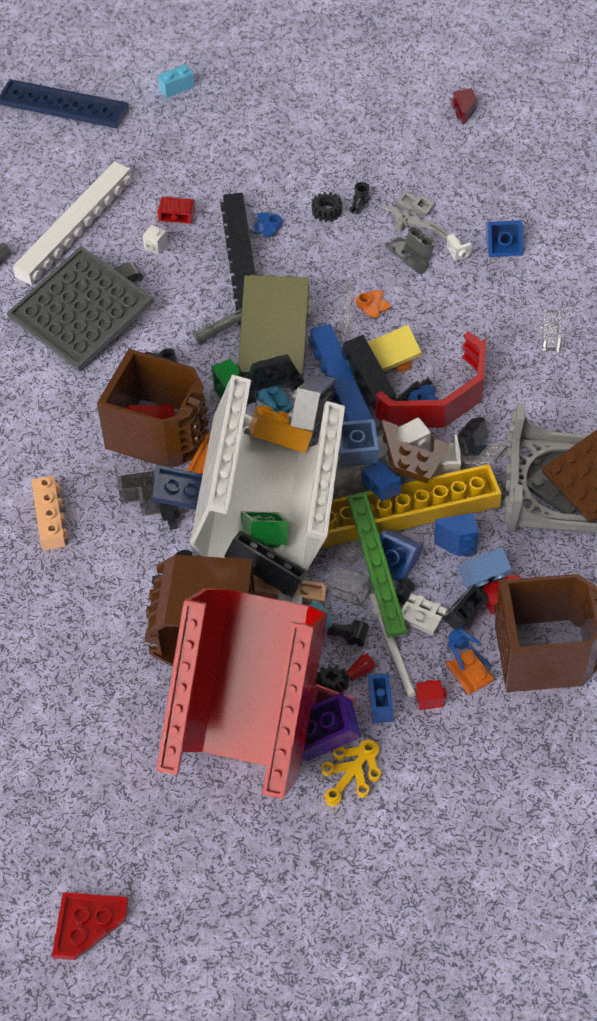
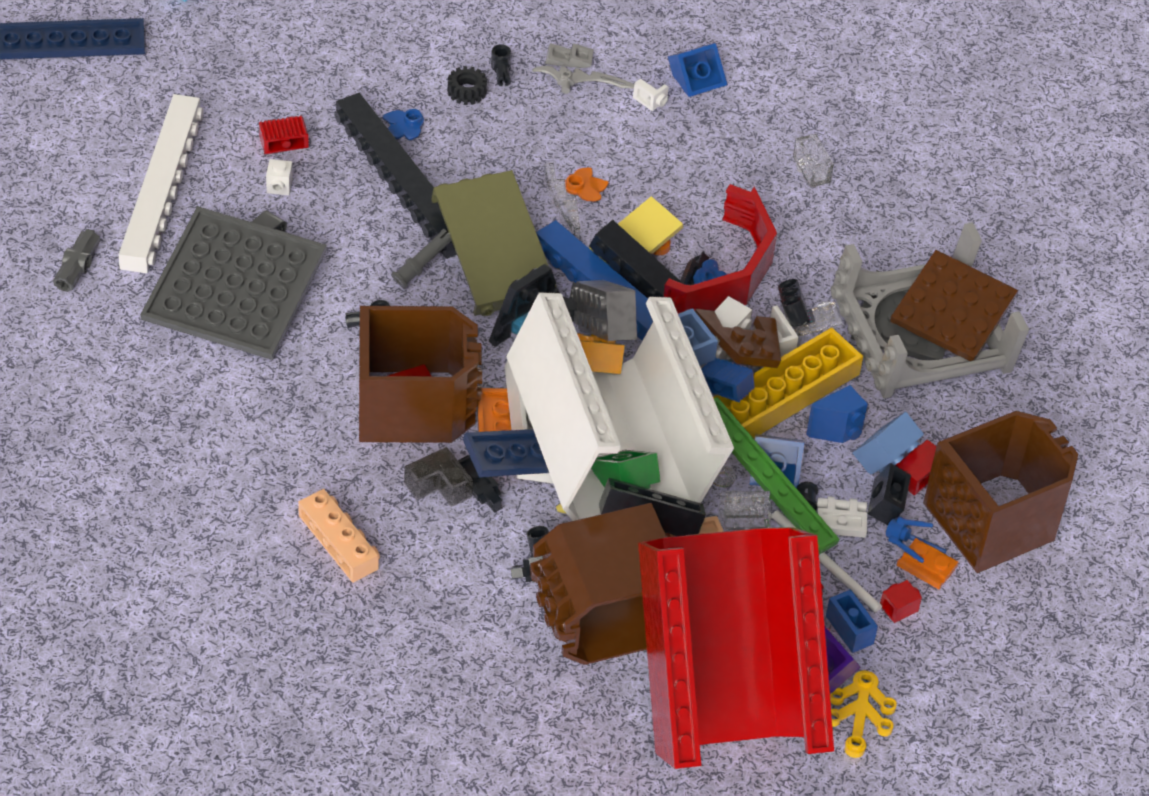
camera: 30 degrees left, 5 degrees down
(222, 373) = (477, 309): green slope -> none
(418, 245) = (600, 102): dark grey piece -> none

